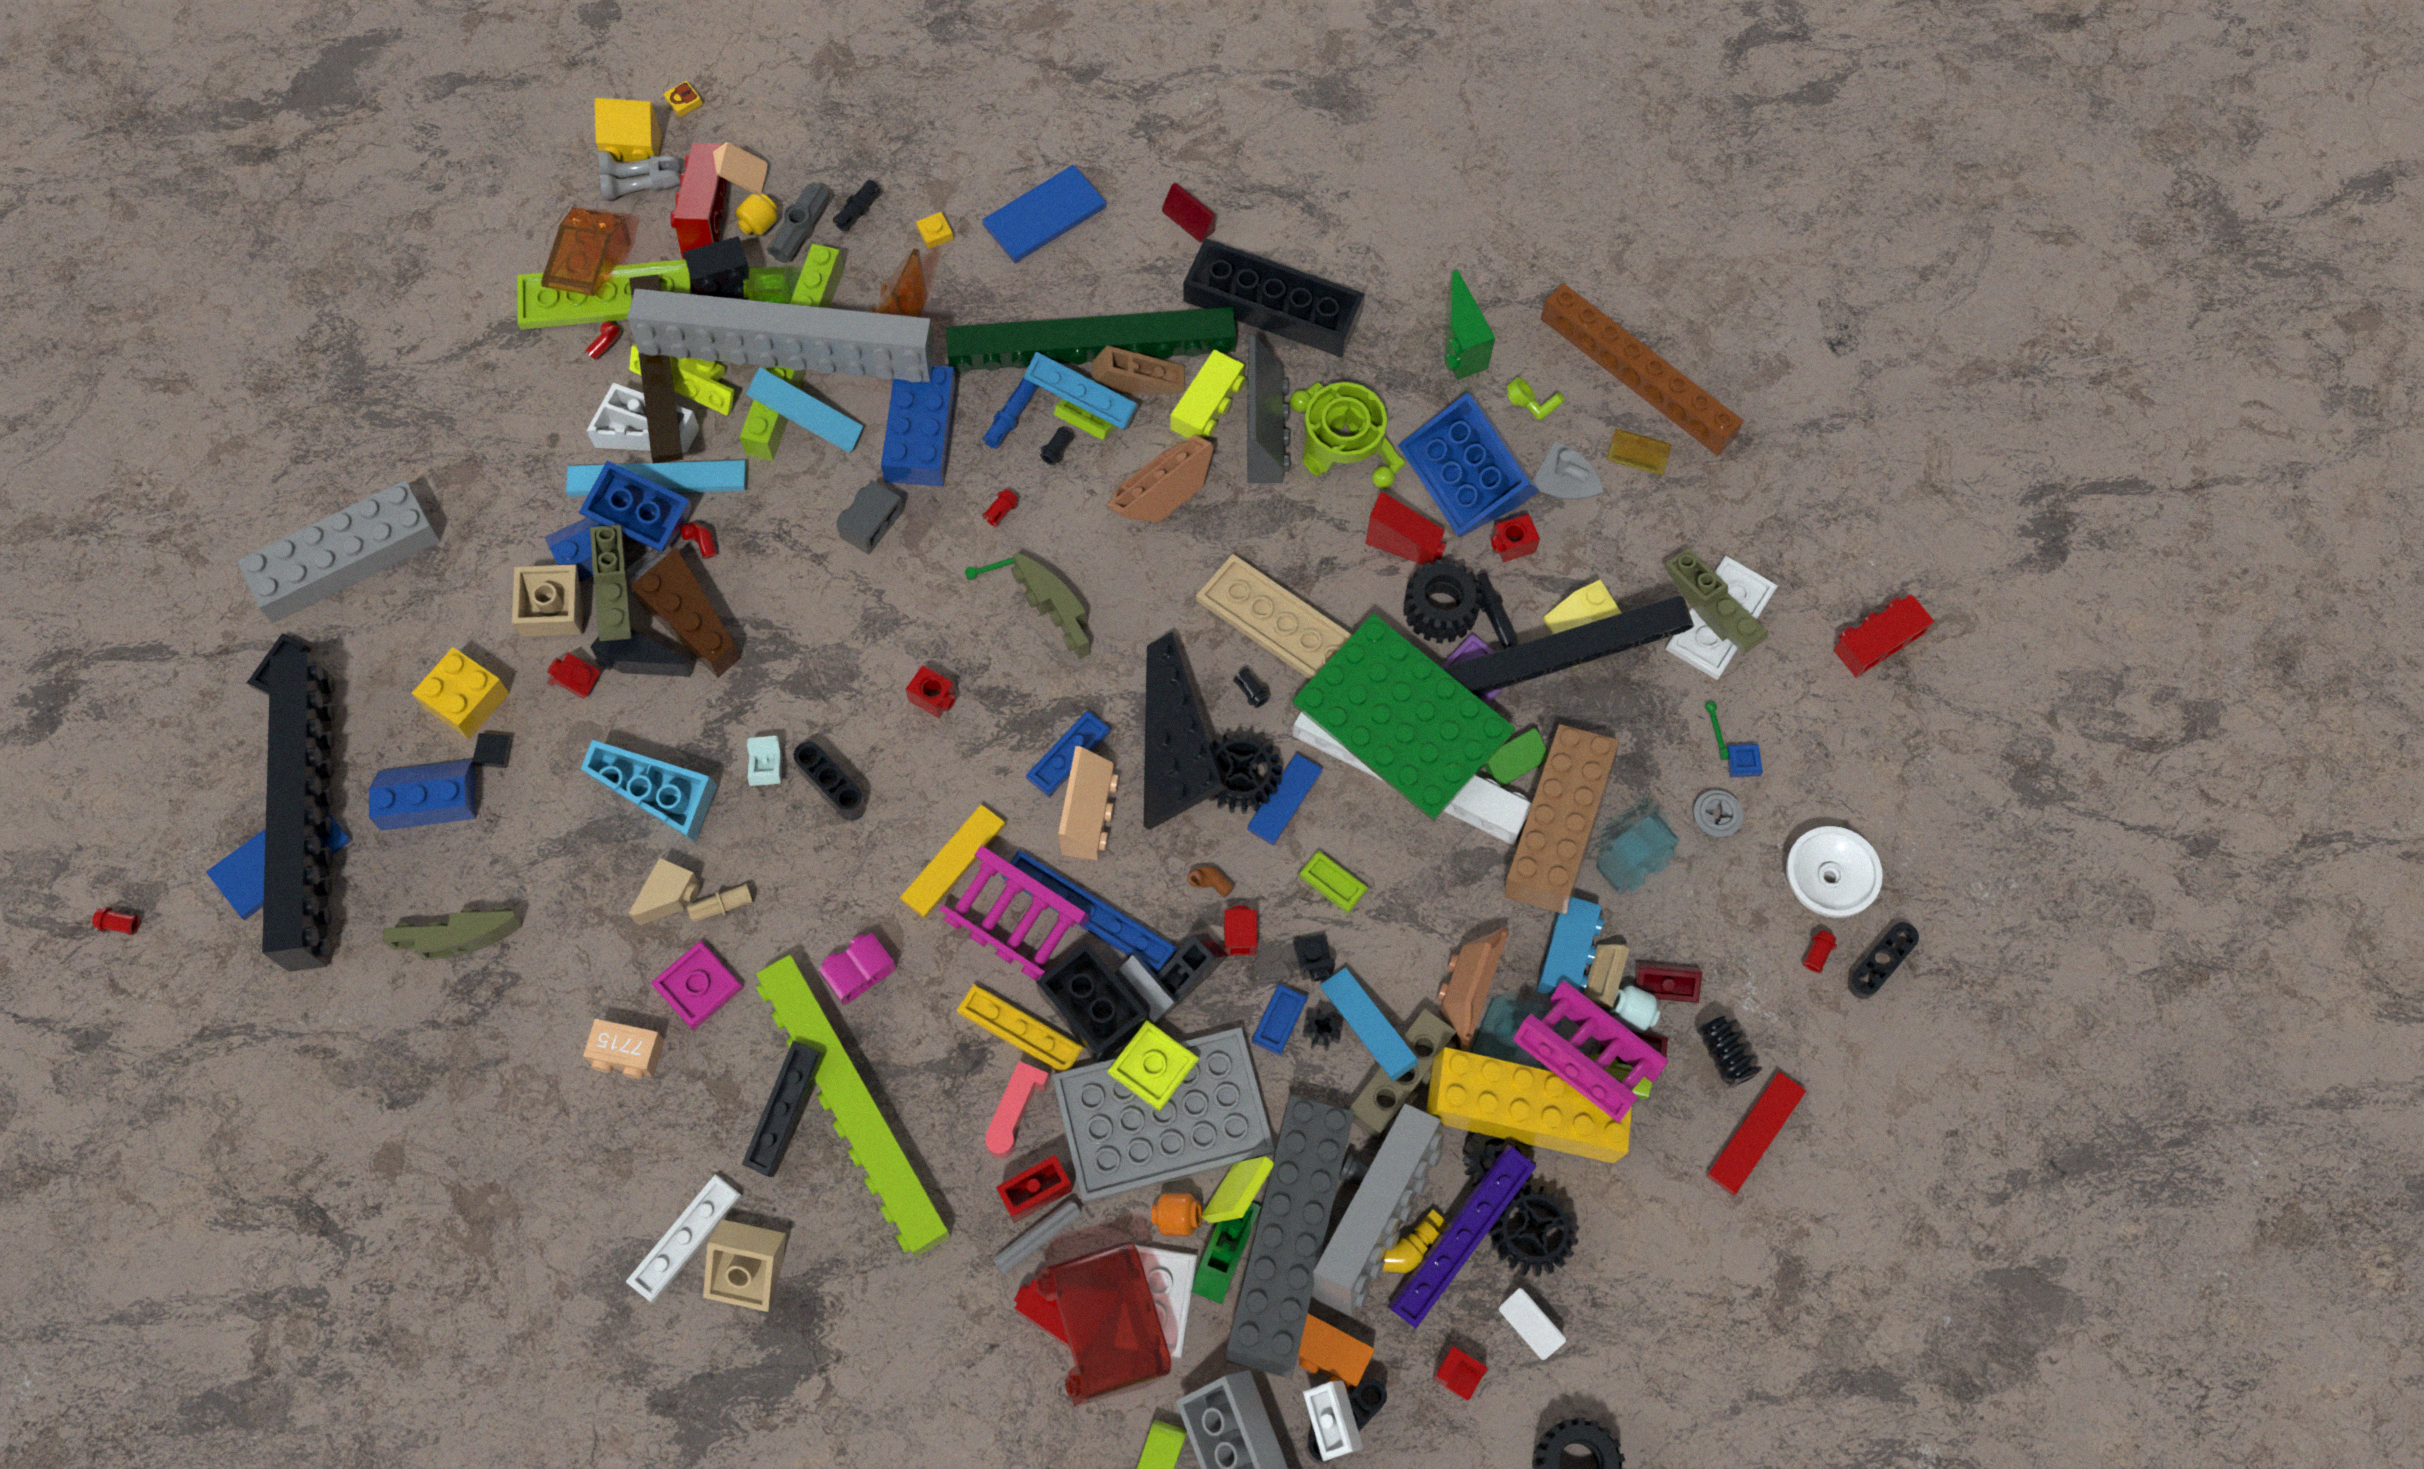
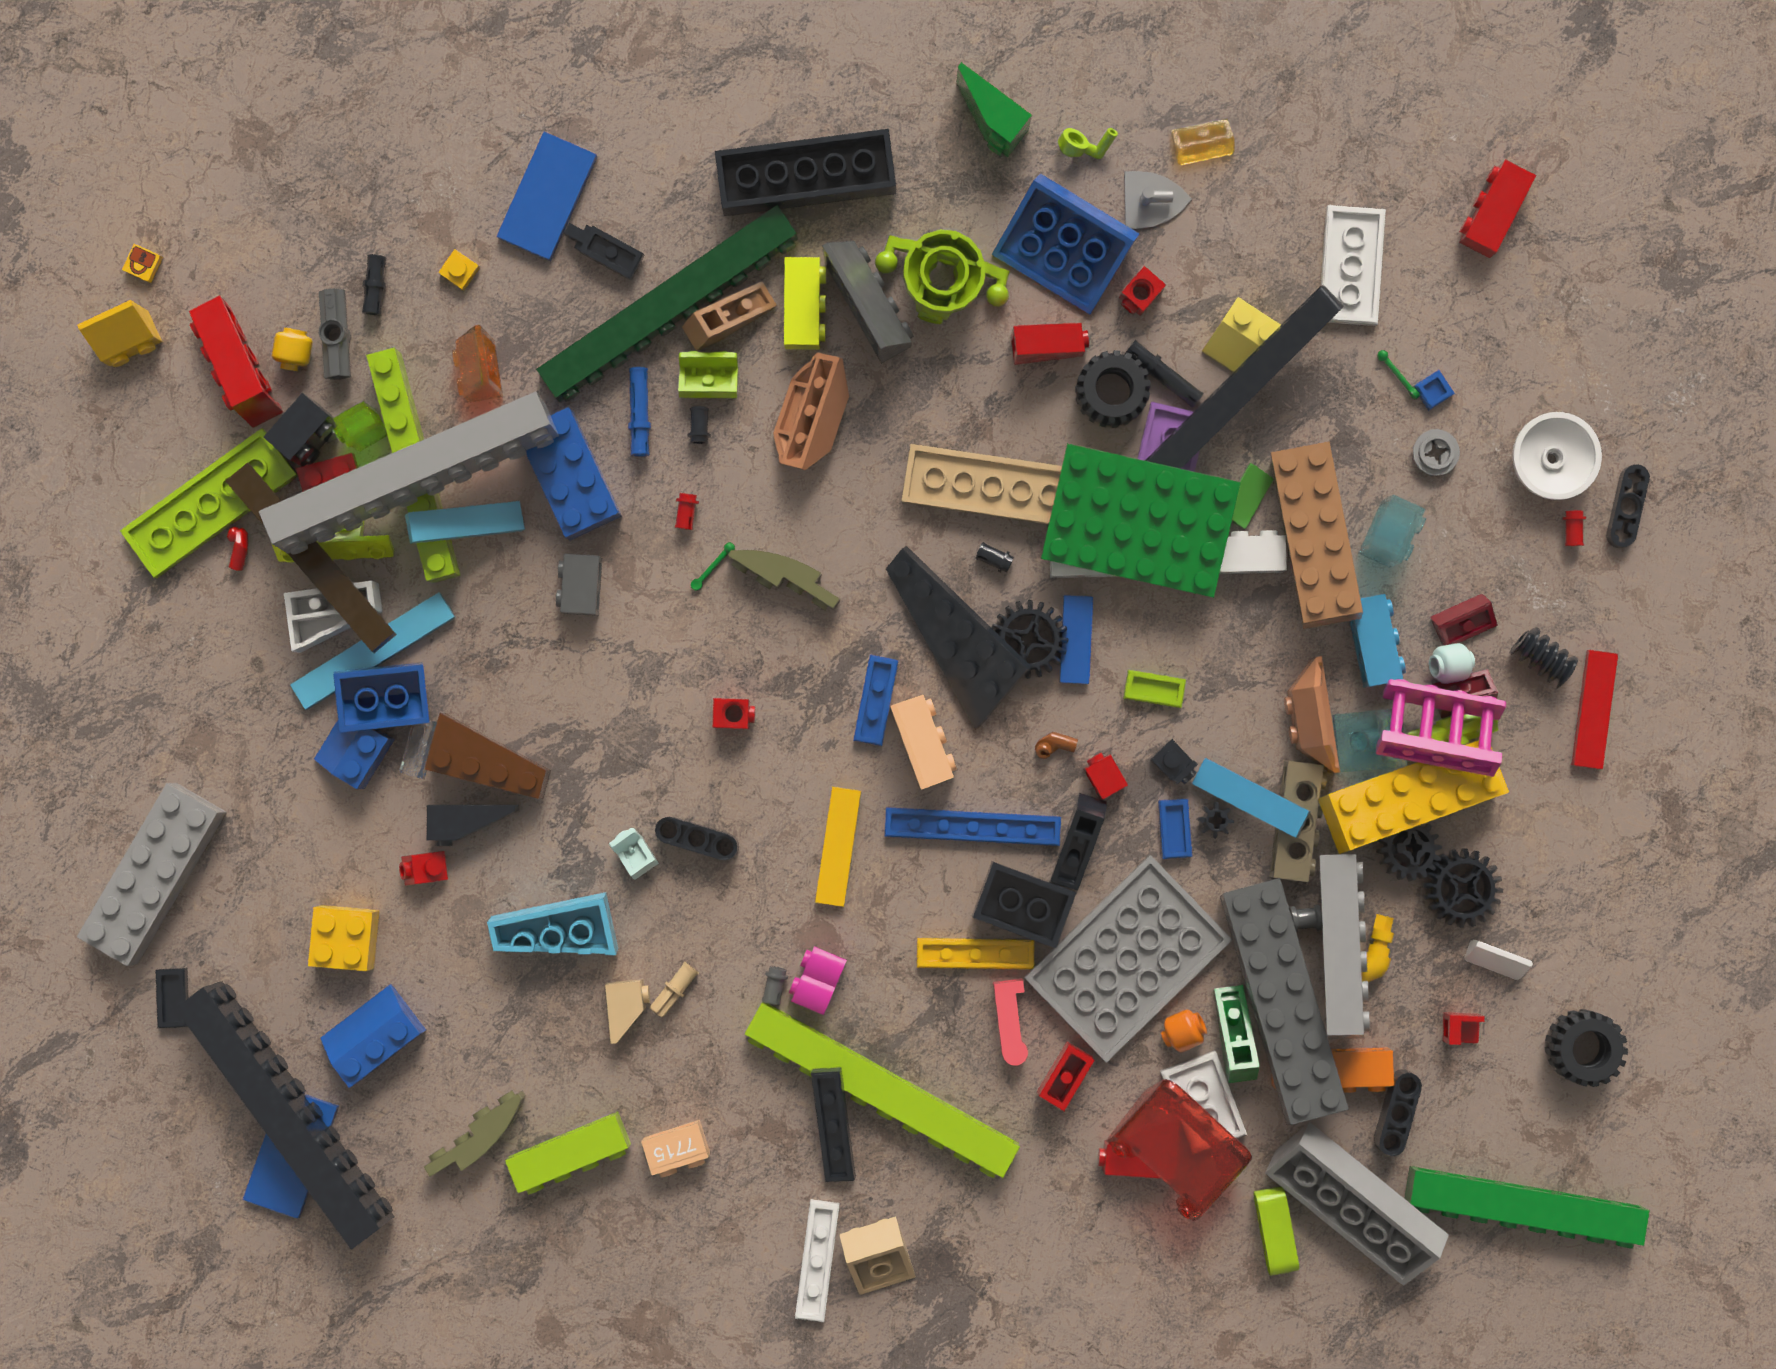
camera: 25 degrees left, 20 degrees up
(107, 919) = (193, 1281): red pin -> none
(492, 750) = (401, 968): black tile -> none
(522, 994) = (567, 1153): none -> lime brick
(547, 601) = (361, 819): tan slope -> none
(585, 251) = (168, 477): clear orange slope -> none
(610, 583) = (409, 779): olive slope -> none
(661, 175) = (131, 375): light grey piece -> none
(697, 985) = (697, 1063): dark pink tile -> none
(700, 535) = (447, 682): red arm -> none
(740, 167) = (249, 313): light nougat slope -> none
(814, 951) = (774, 985): none -> dark grey pin
(1015, 883) = (904, 839): dark pink fence -> none
(1037, 1236) = (1085, 1106): light grey axle -> none
(1066, 274) = (605, 249): none -> black hinge
(1080, 391) = (693, 365): dark azure tile -> none
(1146, 988) = (1057, 868): flat silver tile -> none
(1153, 1066) = (1100, 927): neon yellow tile -> none
(1189, 213) = (678, 124): dark red slope -> none
(1238, 1190) = (1224, 990): neon yellow tile -> none
(1333, 1420) = (1391, 1122): white slope -> none
(1462, 1236) = (1412, 925): dark purple tile -> none
(1606, 974) = (1415, 647): tan tile -> none
(1641, 369) = (1166, 60): dark orange brick -> none
(1713, 604) = (1343, 262): olive slope -> none

